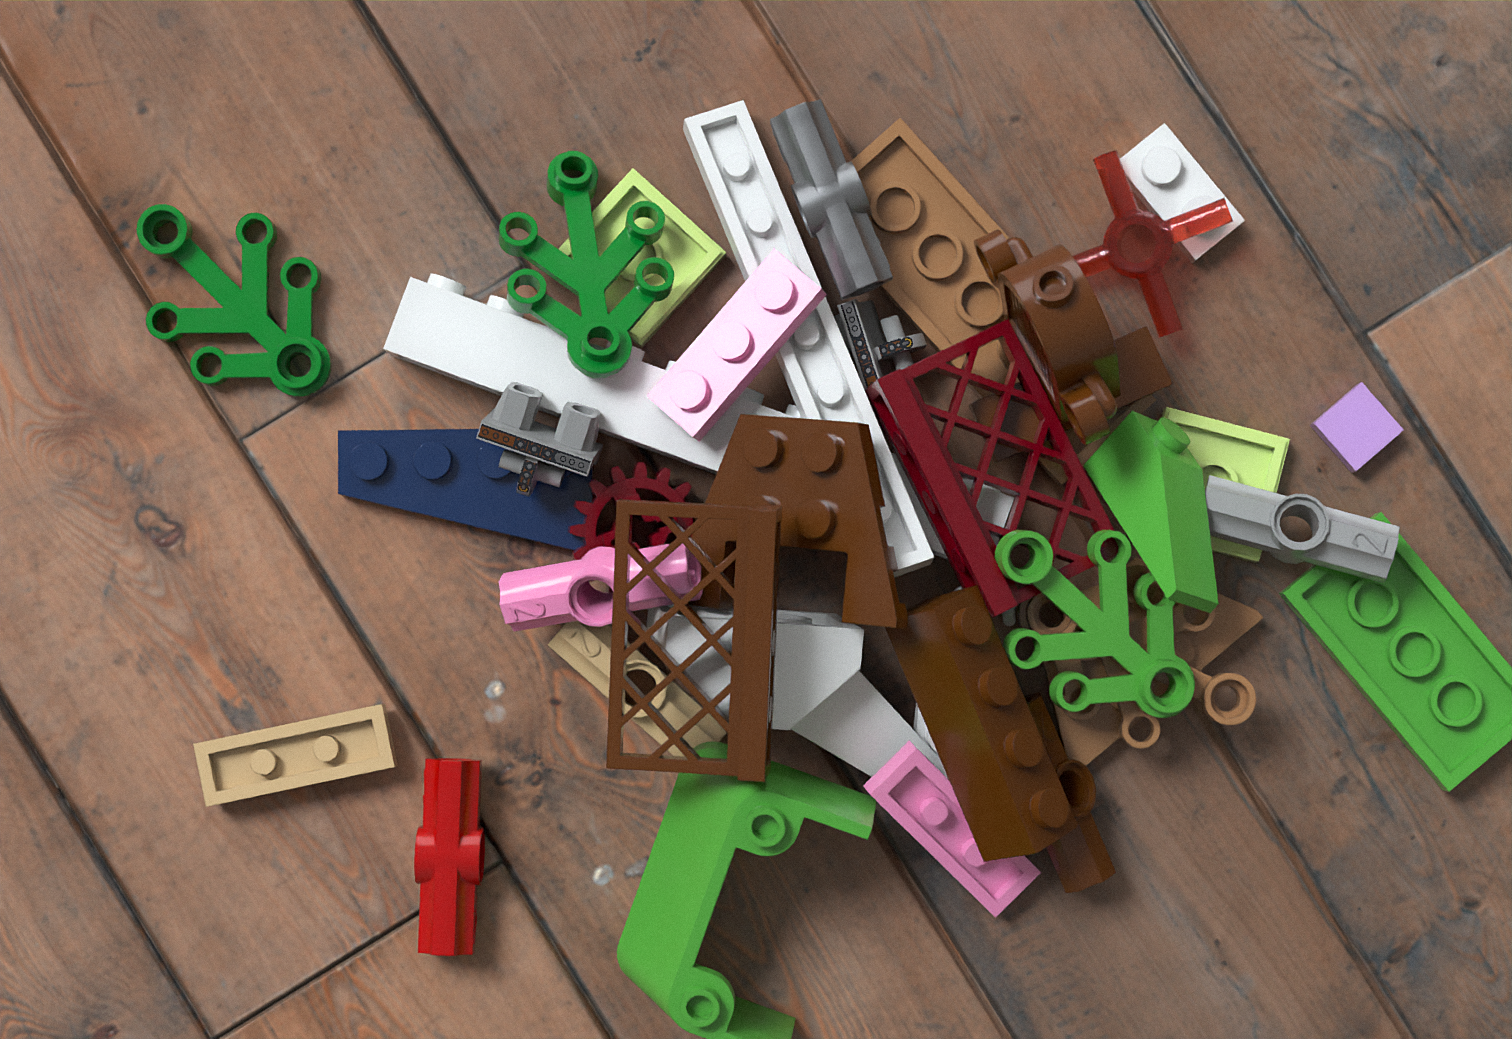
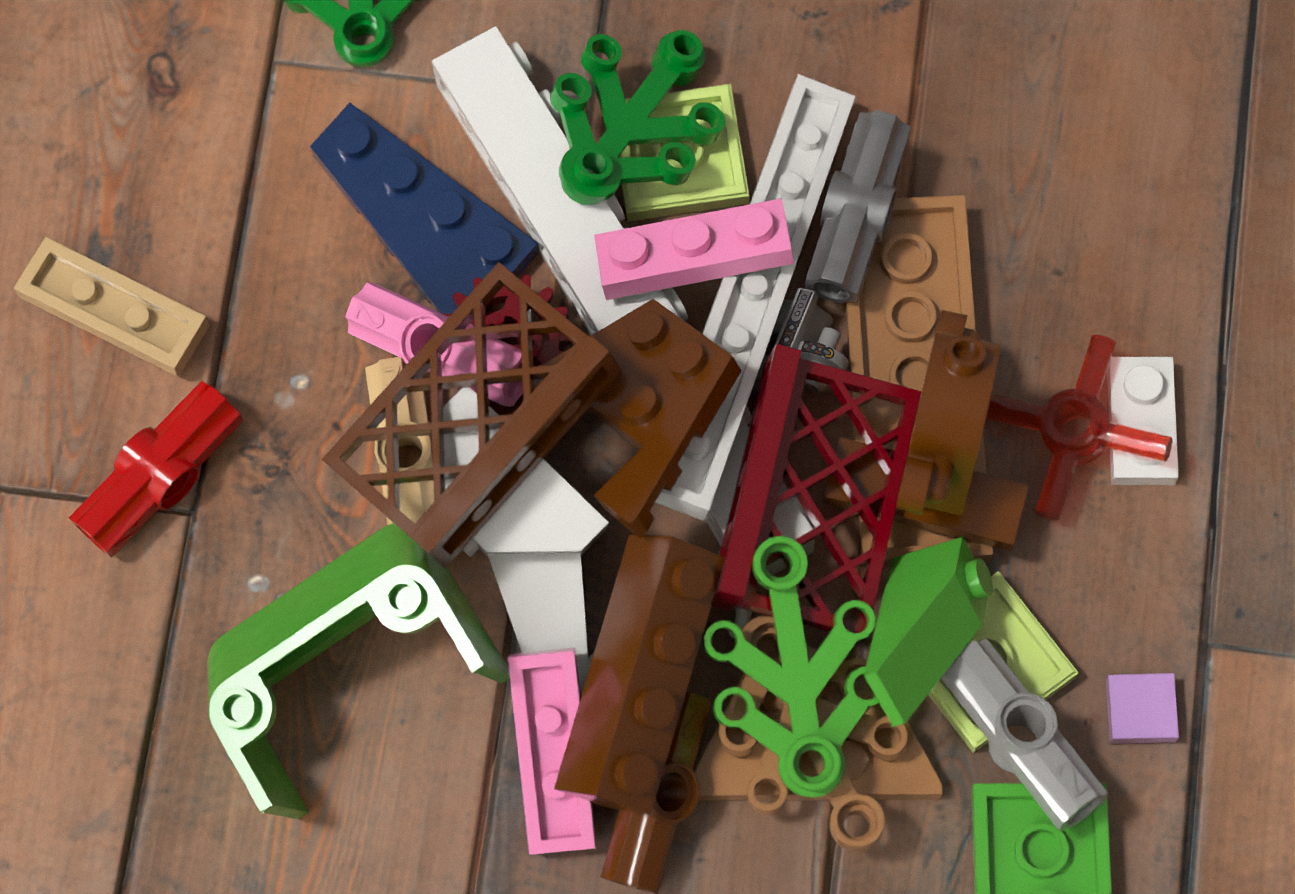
camera: 40 degrees right, 15 degrees down
(514, 428) = (506, 228): light grey hips -> none

